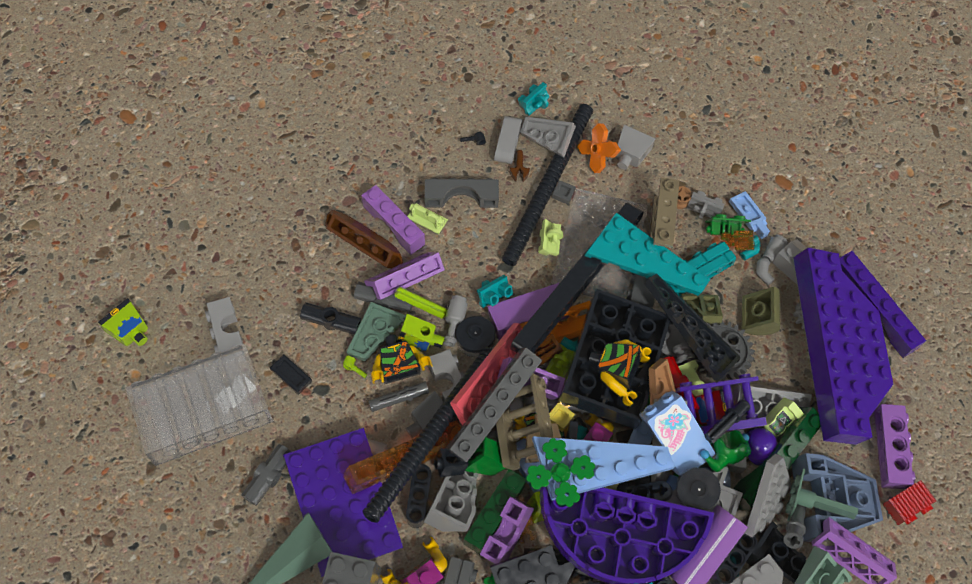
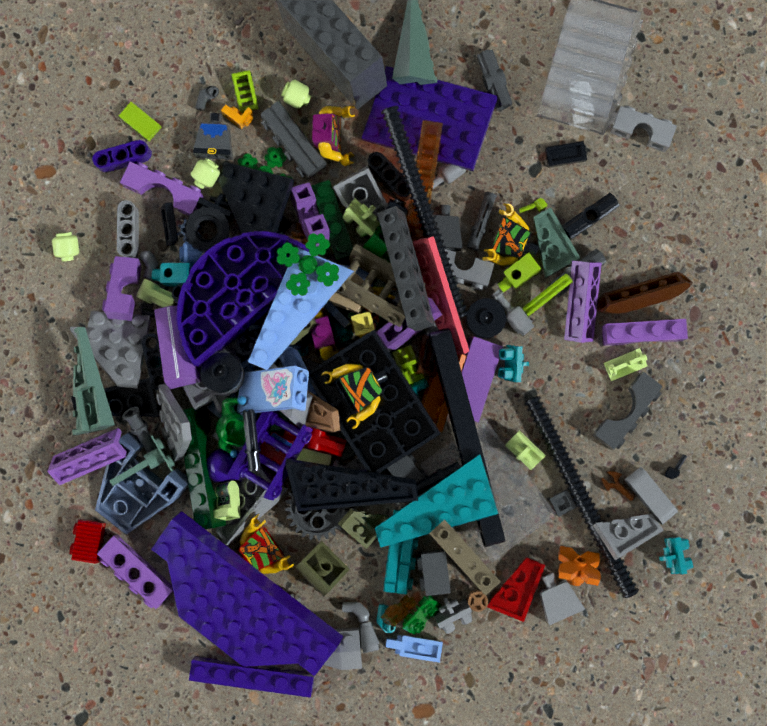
camera: 135 degrees right, 20 degrees up
(125, 324) = (707, 56): lime torso -> none
(473, 485) = (363, 216): none -> yellowish green hips
(625, 277) = (430, 481): none -> black pin
(645, 176) = (518, 590): none -> red wing
(692, 233) = (435, 572): none -> dark grey brick
(789, 364) = (261, 549): none -> torso

